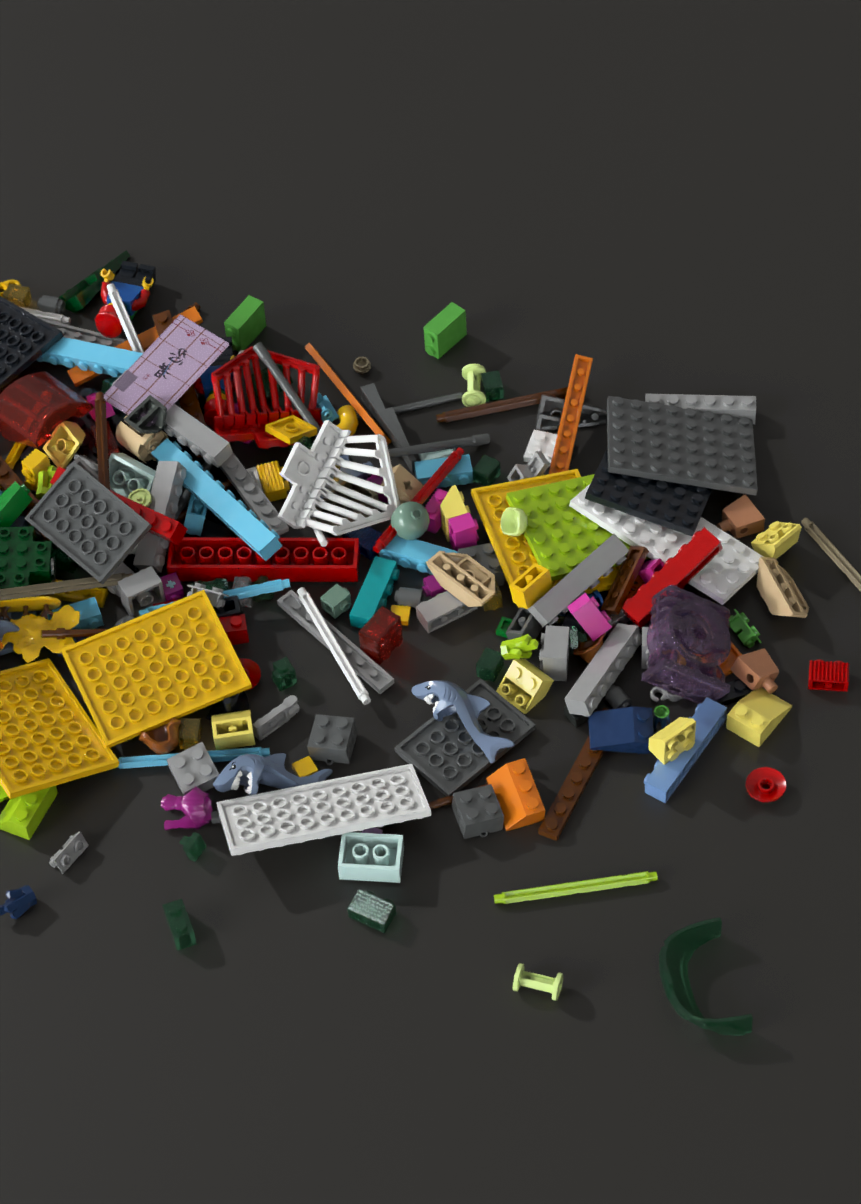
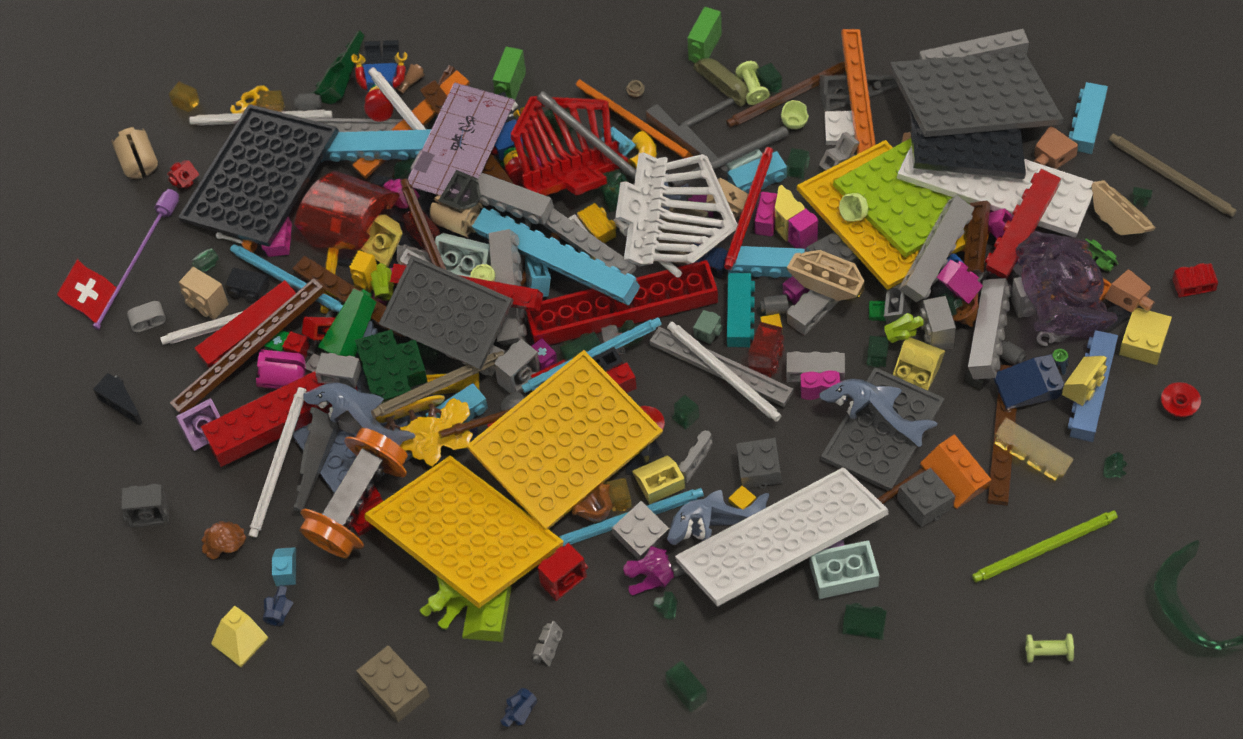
camera: 15 degrees left, 5 degrees up
(106, 789) = (562, 571): none -> red brick
(160, 302) = (413, 75): none -> medium nougat cone
(215, 595) = (594, 351): light grey hinge -> none
(290, 429) = (599, 169): yellow tile -> none
(410, 520) = (751, 230): sand green cylinder -> none
(414, 675) = (814, 383): none -> dark pink brick
(423, 663) = (814, 362): none -> light grey brick
(448, 376) = (723, 79): none -> olive brick
(502, 425) = (794, 114): none -> yellowish green hair
(531, 586) = (897, 266): yellow brick -> none
(604, 795) = (1038, 451): none -> clear yellow windscreen
(673, 829) = (1114, 465): none -> clear green tile
(776, 539) = (1097, 161): light yellow slope -> none
(789, 494) = (1088, 117): none -> medium azure brick
(810, 581) = (1141, 193): none -> clear green tile

